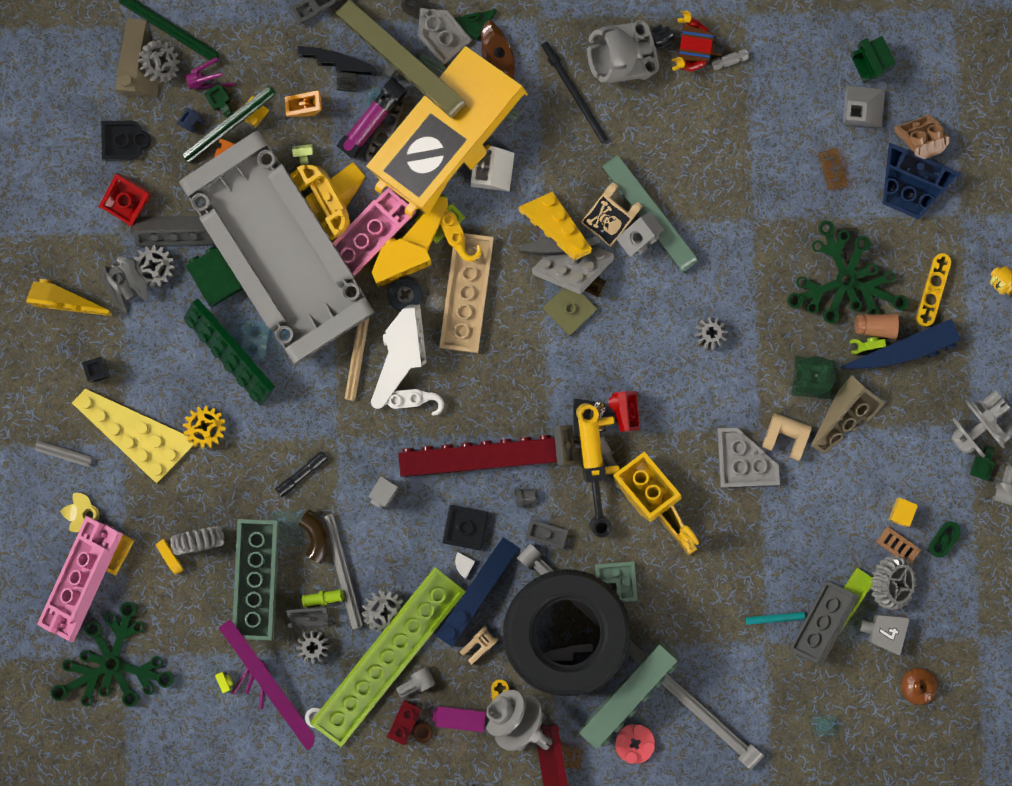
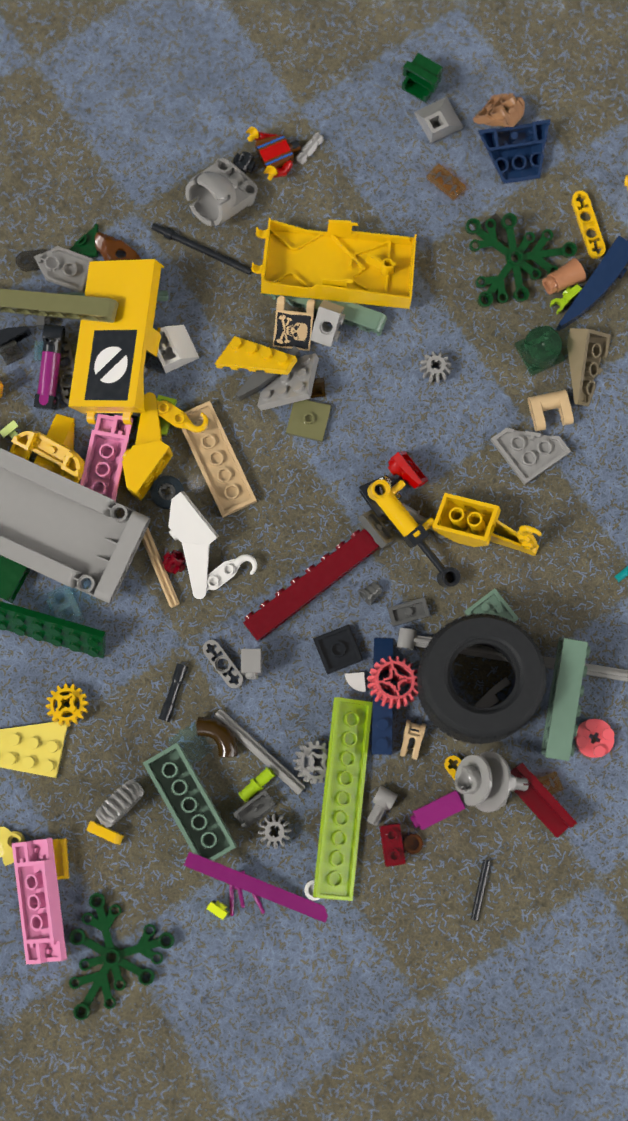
camera: 25 degrees left, 5 degrees down
(353, 463) = (227, 679): none -> light grey beam
(372, 361) = (174, 561): none -> dark red gear
(489, 595) = (378, 686): none -> coral gear
(683, 186) = (337, 264): none -> yellow piece

